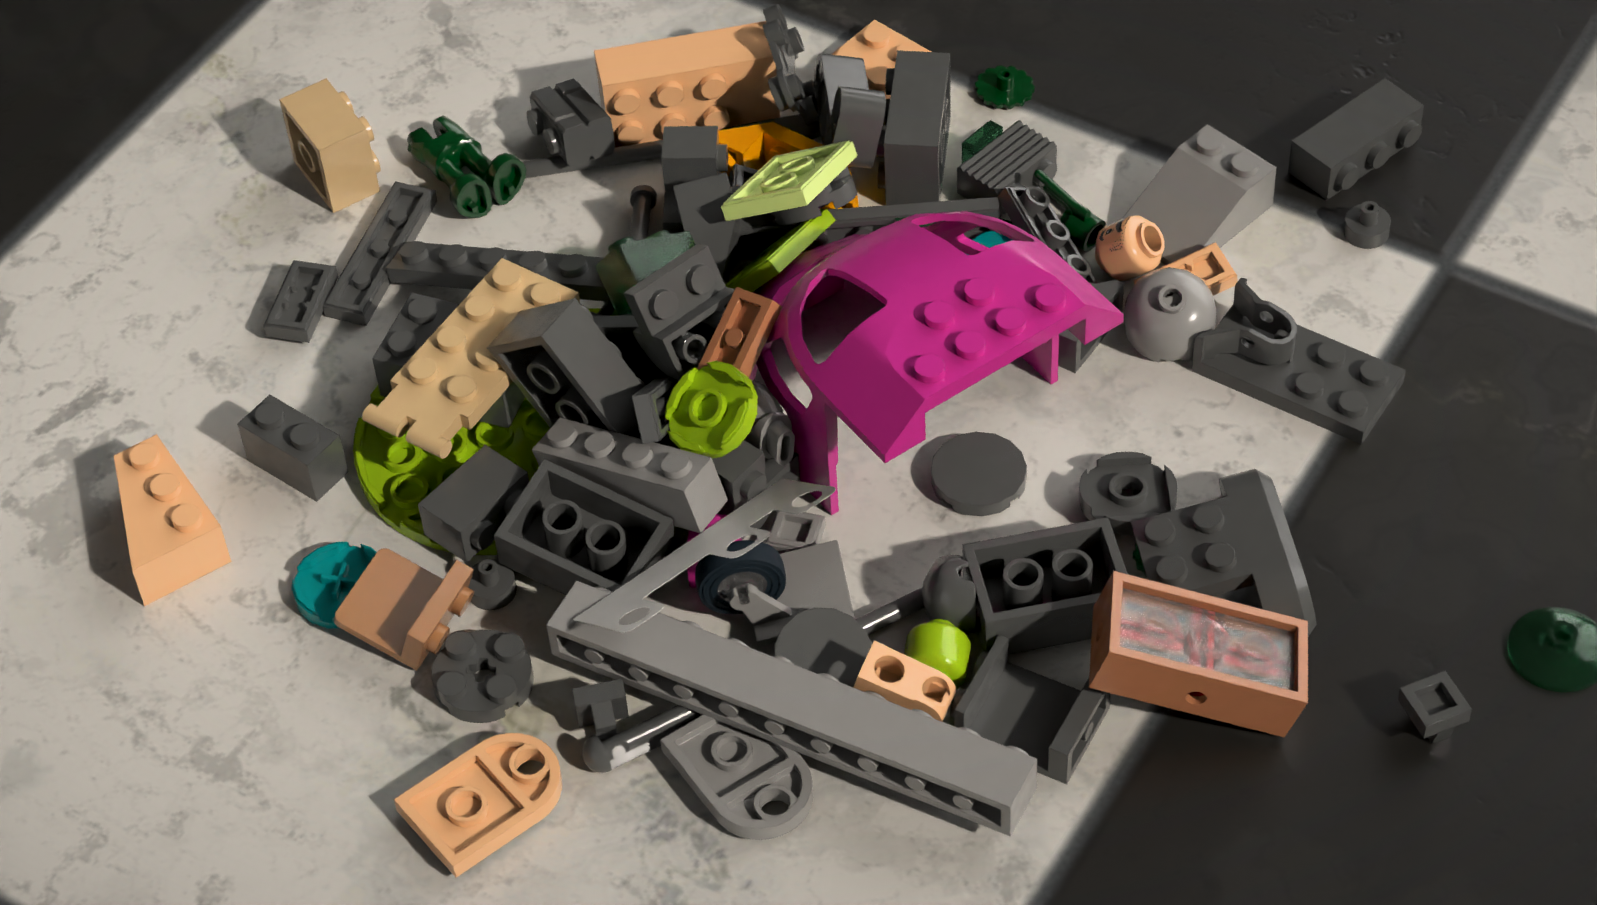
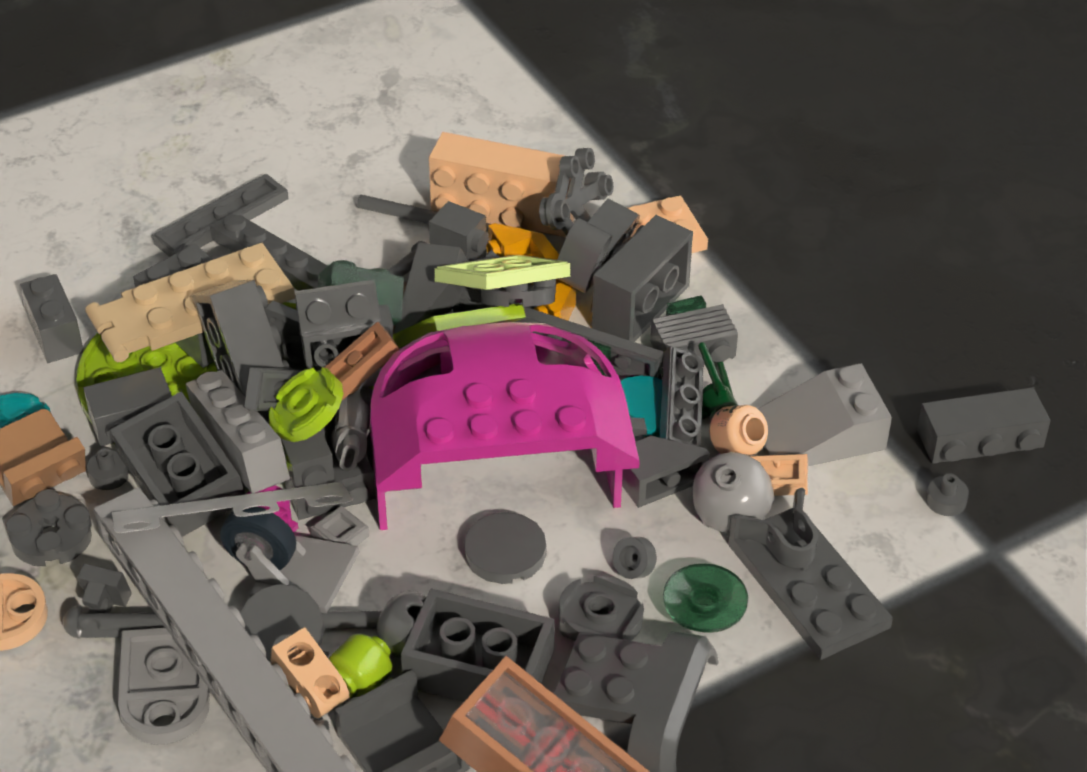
camera: 25 degrees right, 5 degrees down
(300, 301) = (140, 225): dark grey plate -> none
(331, 144) = (235, 130): tan brick -> none
(453, 150) = (314, 170): dark green piece -> none
(571, 123) = (405, 180): dark grey brick -> none
(1004, 87) = (743, 280): dark green piece -> none
(1113, 430) = (634, 557): none -> dark grey tile
(1219, 432) = (706, 585): none -> clear green dish

